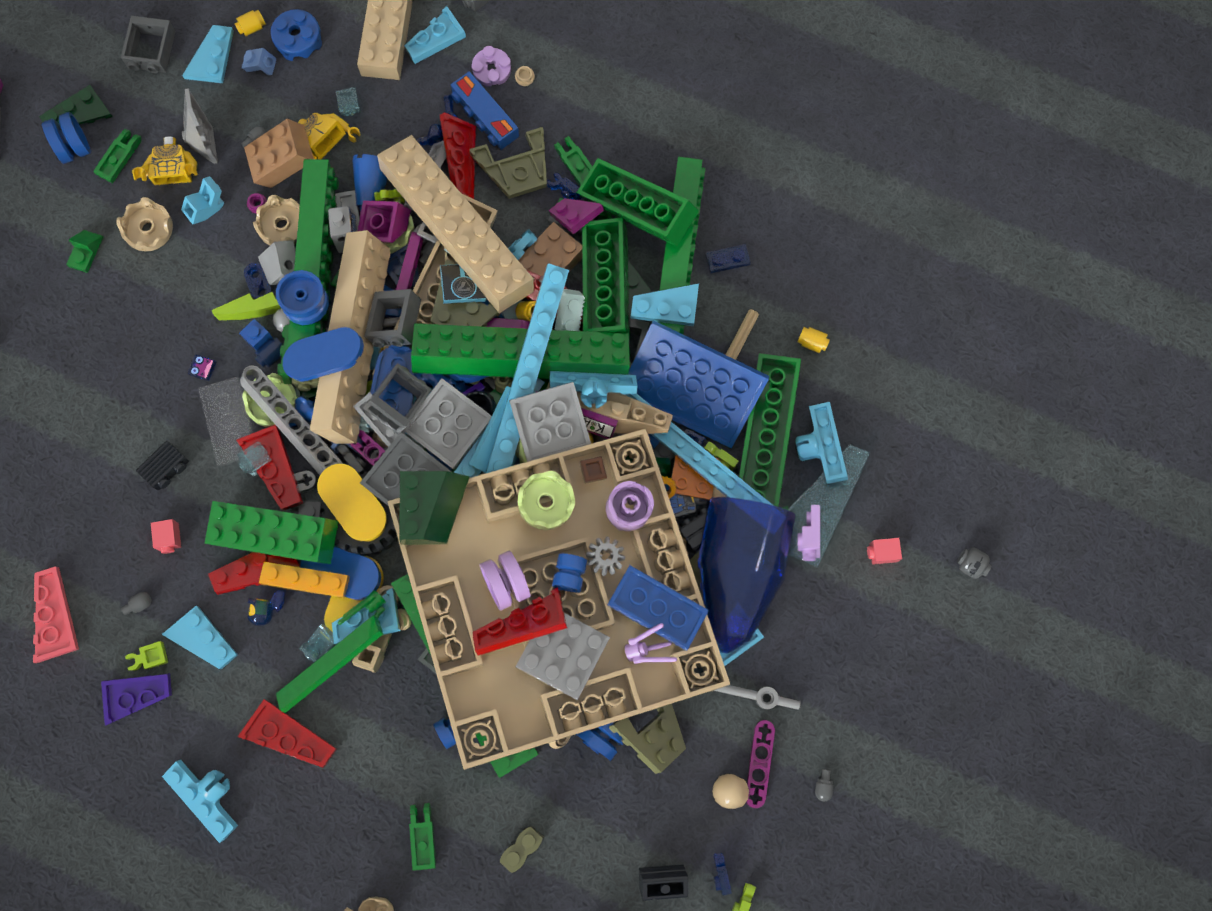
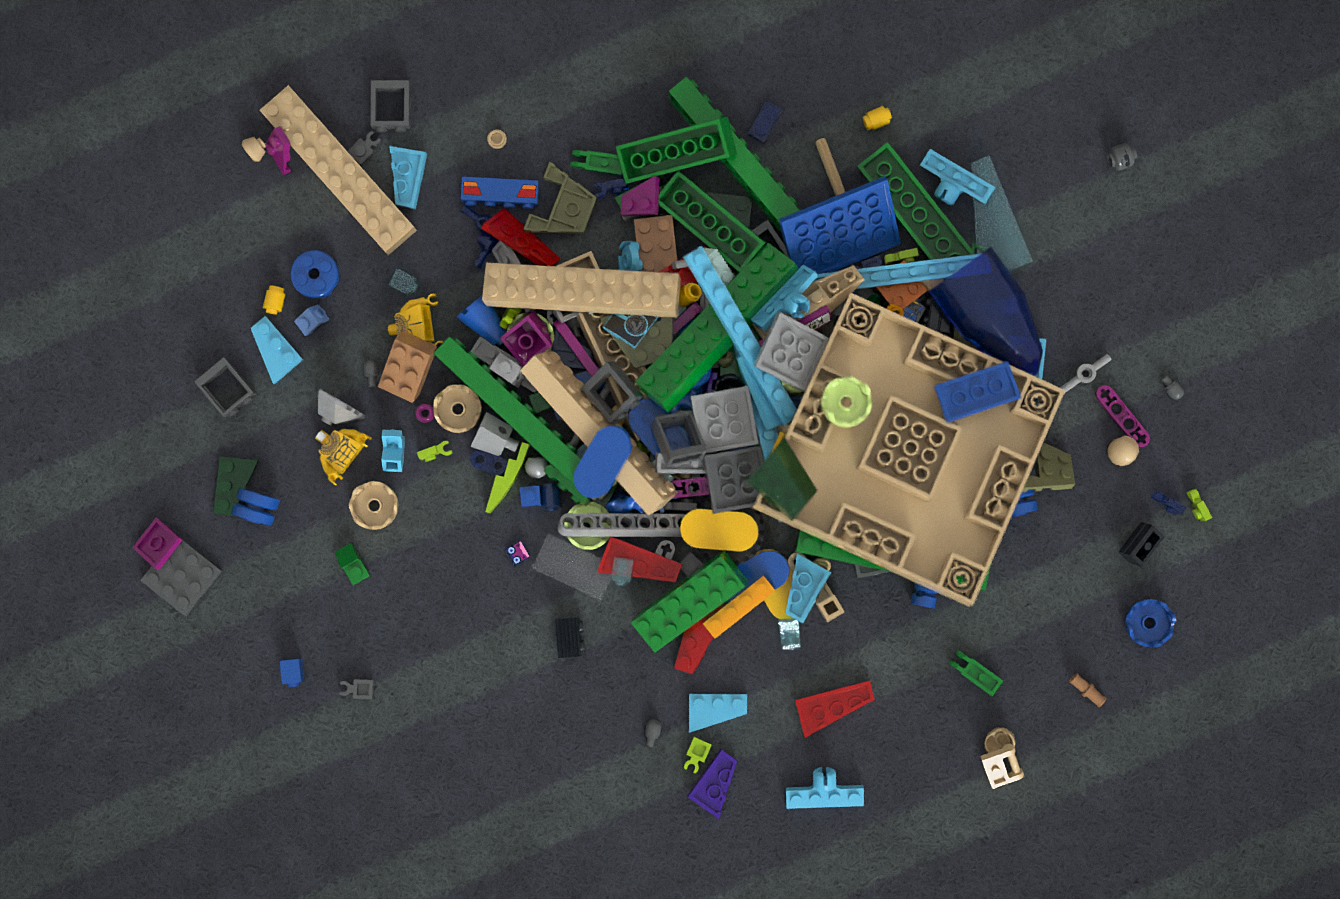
camera: 45 degrees left, 10 degrees up
(53, 620) = (614, 797): coral wing -> none
(117, 156) = (298, 483): green hinge -> none
(166, 536) = (622, 675): coral brick -> none
(227, 232) = (429, 453): none -> lime plate
(262, 610) = (732, 652): clear blue piece -> none
(302, 297) = (539, 433): blue wheel -> none
(329, 664) = (813, 637): green tile -> none
(372, 603) = (798, 574): green plant -> none
(491, 56) = (476, 162): lavender plate -> none
(505, 580) = (879, 474): lavender wheel -> none
(517, 854) = (1041, 621): olive brick -> none
(533, 621) = (920, 477): red wing -> none
(564, 657) = (953, 478): light grey plate -> none
(570, 572) = (907, 428): blue wheel -> none
(593, 469) = (849, 352): reddish brown tile -> none
(603, 548) = (910, 389): light grey gear -> none
(635, 495) = (907, 347): lavender brick -> none
(638, 650) = (991, 430): lavender plant -> none
(667, 306) = (772, 198): medium azure wing -> none
(810, 537) = (1015, 251): lavender plate -> none
(884, 551) = (1061, 207): coral brick -> none

